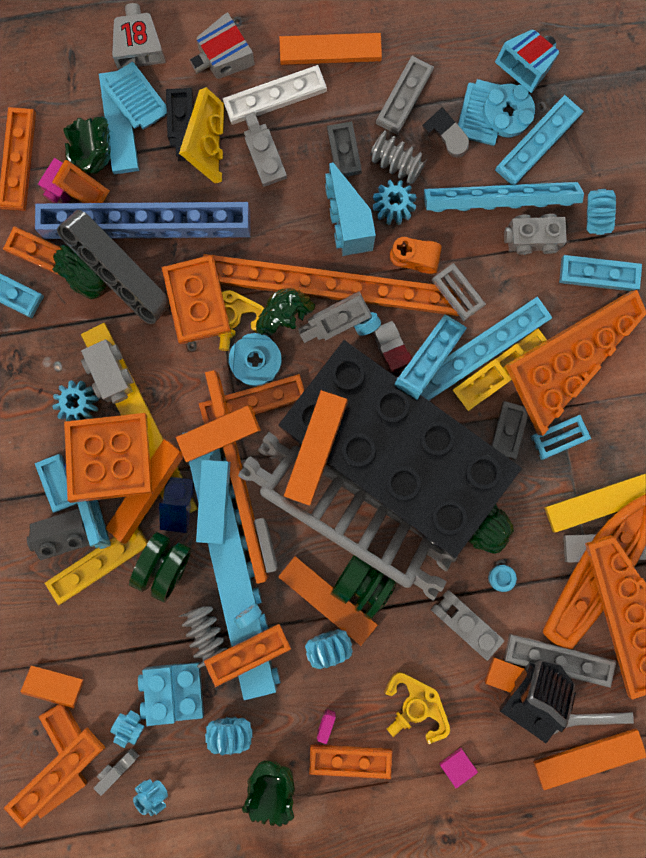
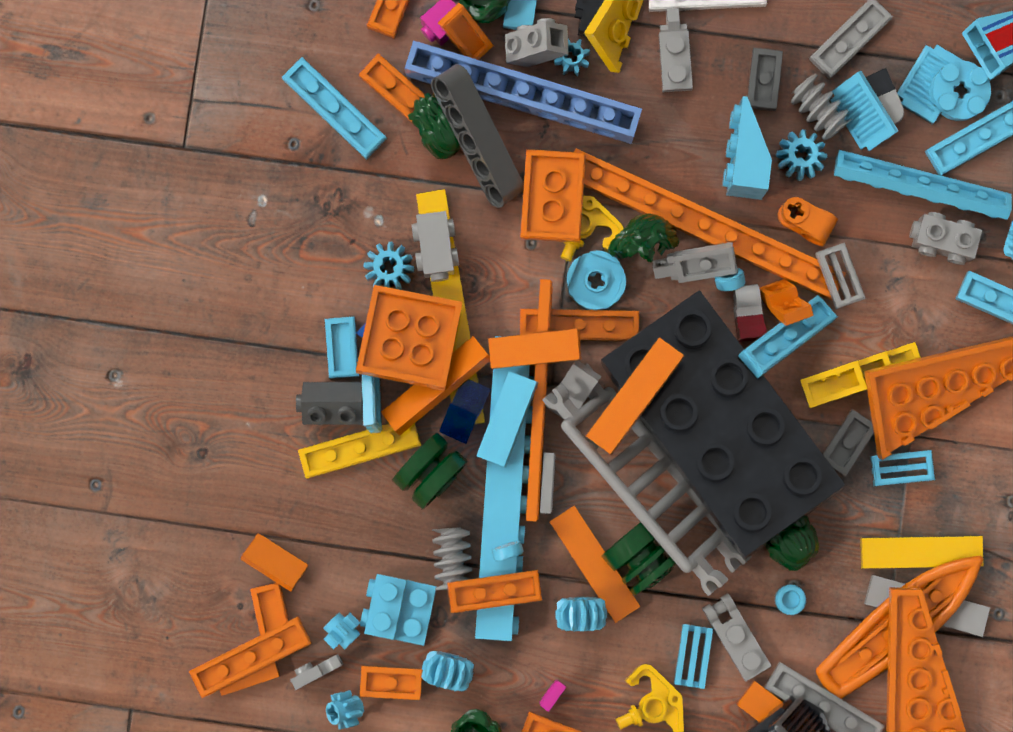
camera: 20 degrees right, 0 degrees up
(143, 175) = (536, 43): none -> light grey brick
(174, 172) = (567, 63): none -> medium azure gear
(183, 760) = (391, 682): none -> orange plate
(266, 451) = (579, 384): none -> light grey tile
(419, 329) = (784, 303): none -> orange slope
(443, 154) = (869, 118): none -> medium azure window
(449, 670) = (693, 657): none -> medium azure tile
(487, 346) = (853, 344): medium azure plate -> none

